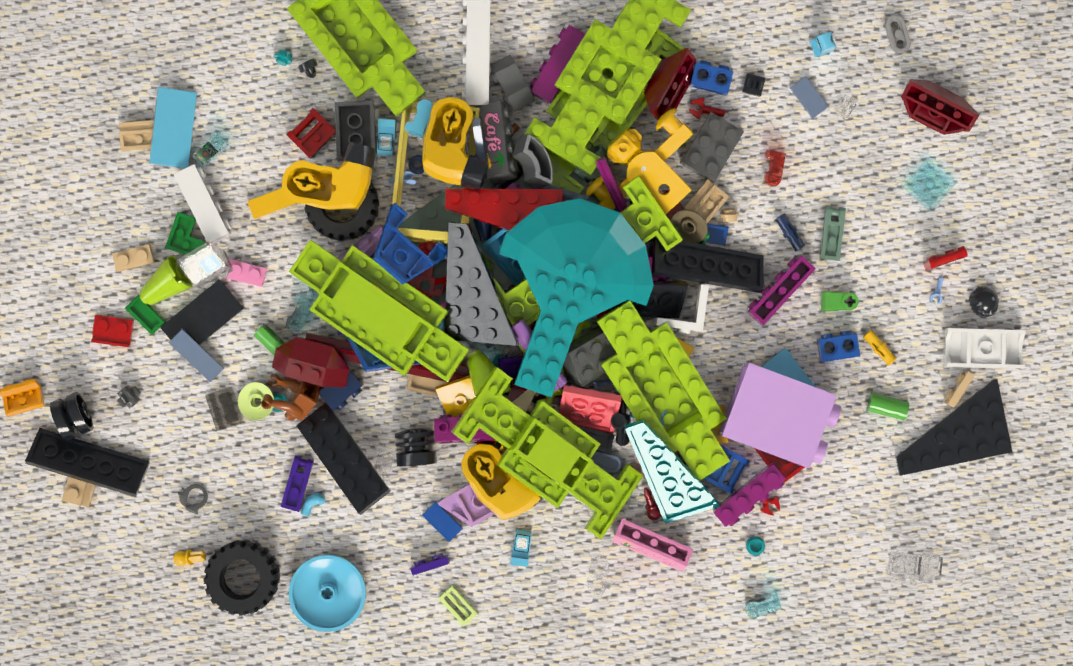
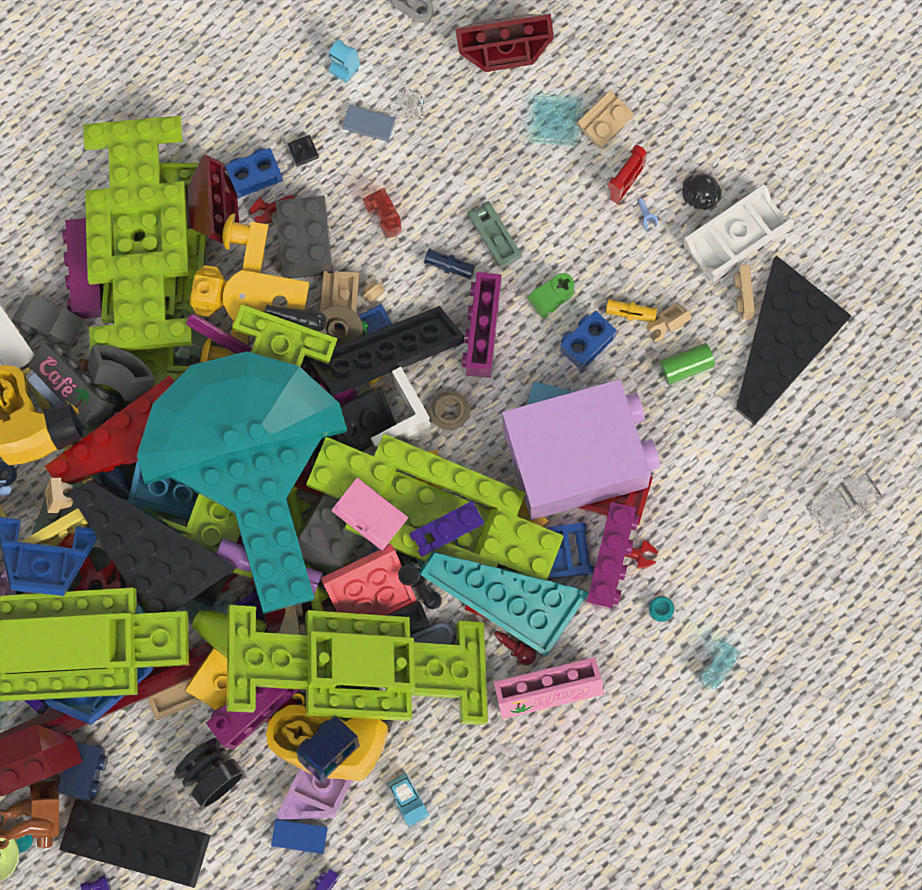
camera: 30 degrees left, 15 degrees down
(439, 214) = (54, 495): none -> tan tile
(495, 492) = (327, 748): none -> clear blue brick
(621, 369) = (369, 514): none -> bright pink piece
(662, 410) = (447, 528): none -> dark purple plate
(672, 212) = (308, 318): none -> black piece
(725, 321) = (451, 400): none -> dark tan gear
(899, 371) = (671, 319): none -> tan plate
(960, 208) = (604, 119): none -> tan plate

